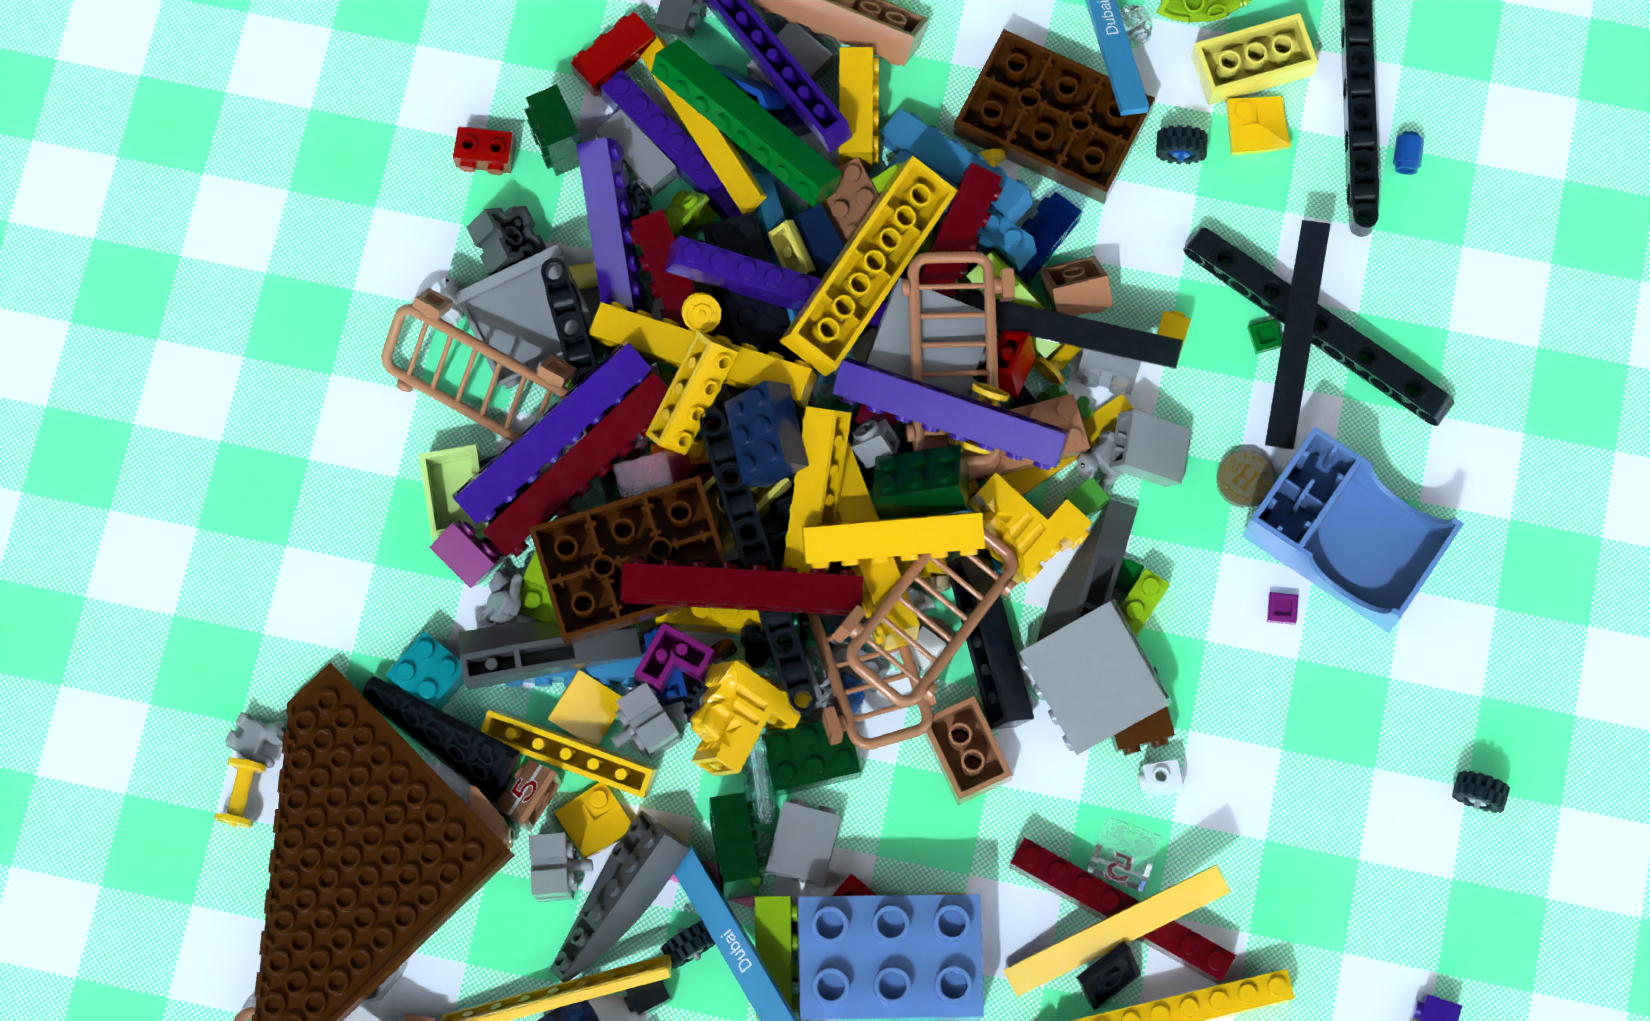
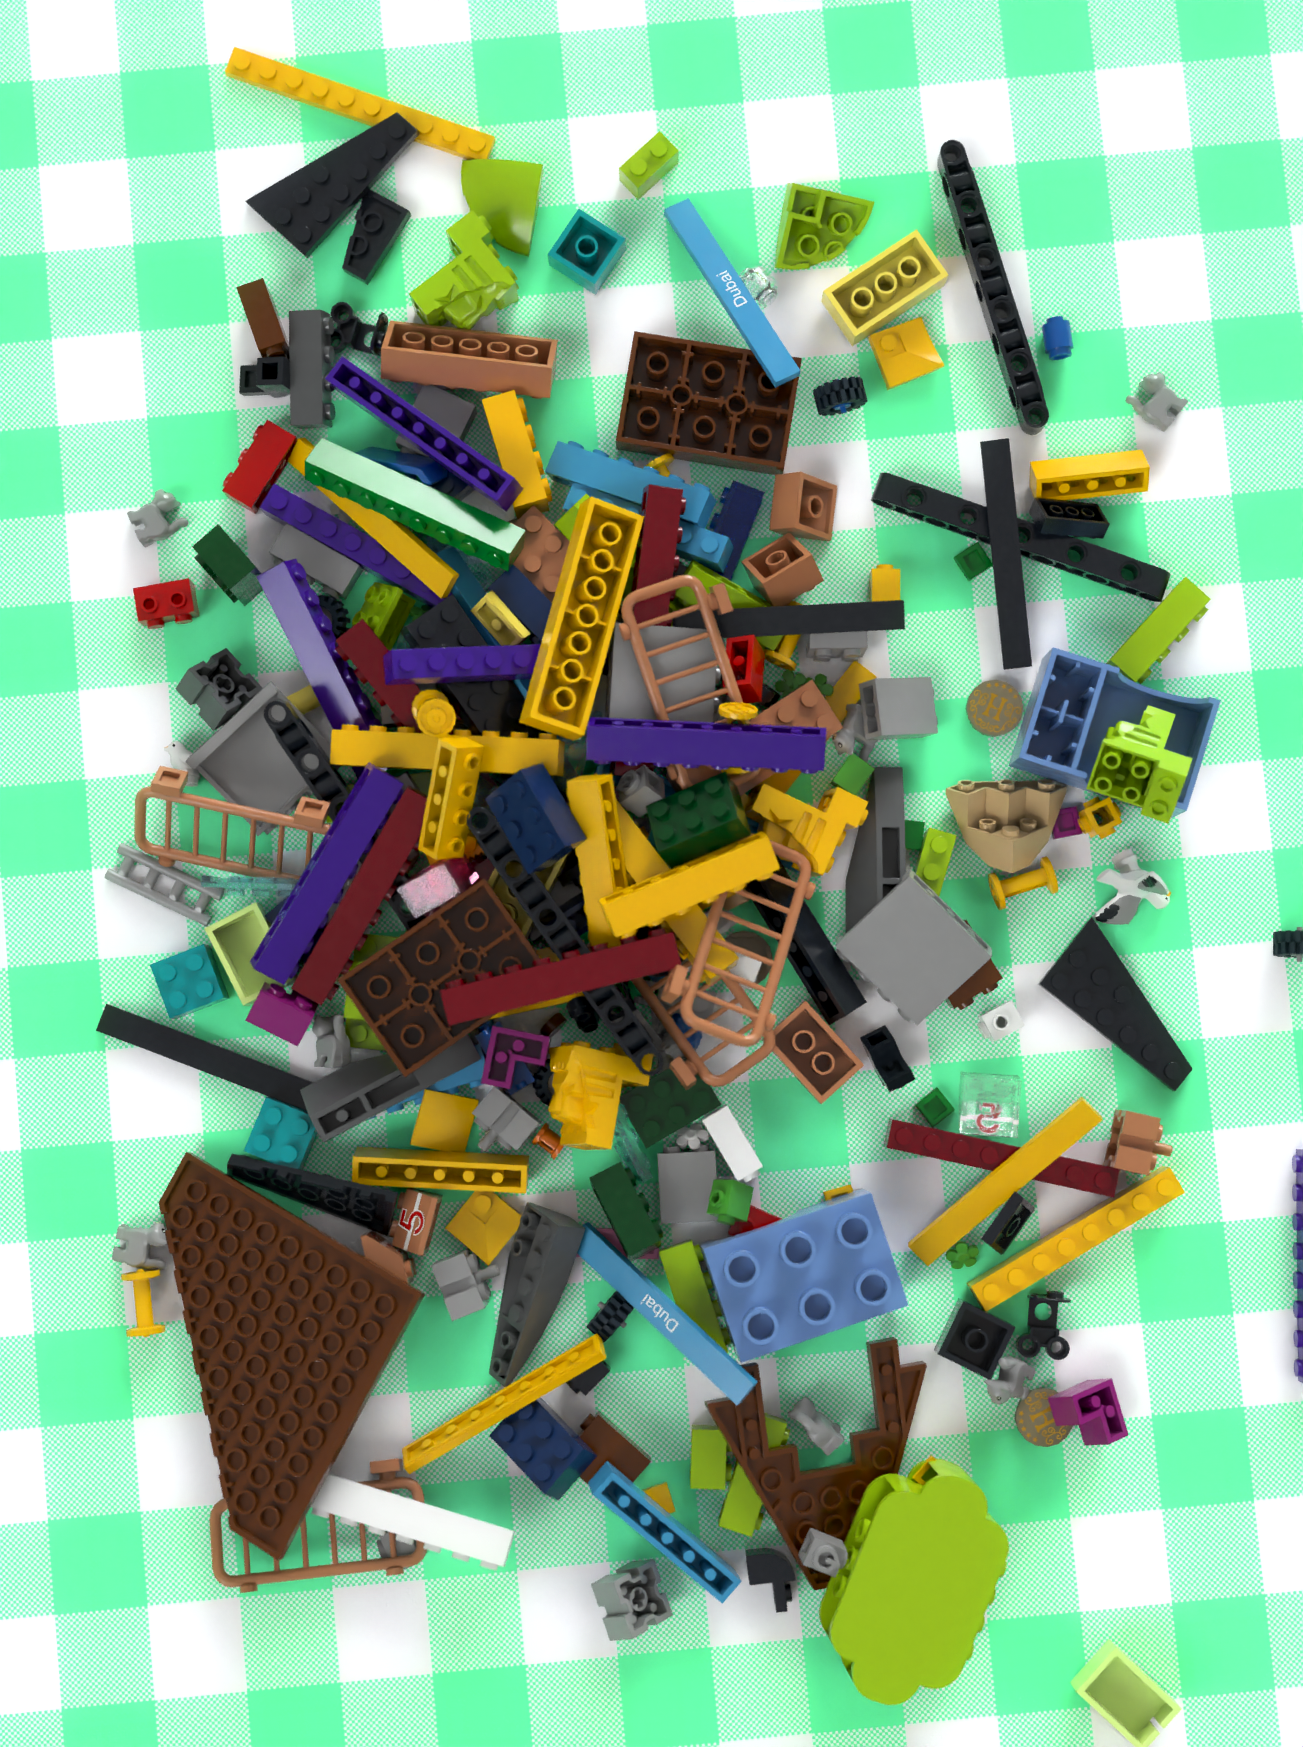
camera: 20 degrees left, 10 degrees up
(375, 577) = (203, 1055): none -> black tile
(376, 407) = (146, 889): none -> light grey bar
(388, 503) = (189, 981): none -> teal brick
(466, 426) = (259, 887): none -> clear light blue wing
(498, 76) = (154, 521): none -> light grey animal
(681, 758) = (548, 1140): none -> orange bush
(822, 798) = (691, 1136): none -> white plant
(840, 866) = (730, 1201): none -> bright green brick
(859, 813) = (732, 1144): none -> white brick
(1037, 779) = (887, 1059): none -> black brick
(1054, 997) = (962, 1255): none -> bright green plant
(1071, 843) = (934, 1107): none -> green tile
(1116, 236) = (803, 506): none -> nougat slope
(1222, 651) = (1022, 883): none -> yellow hose
(1224, 586) = (1006, 818): none -> tan brick
(1260, 934) = (1133, 1142): none -> nougat brick
(1273, 787) = (1105, 996): none -> black wing
(1321, 602) = (1109, 814): none -> yellow brick
(1330, 687) = (1132, 886): none -> white animal
(1367, 561) = (1138, 768): none -> lime brick
(1369, 319) = (1068, 518): none -> black piece
(1400, 287) = (1089, 476): none -> yellow brick
(1429, 451) = (1159, 630): none -> lime brick
(1490, 241) = (1163, 400): none -> light grey animal

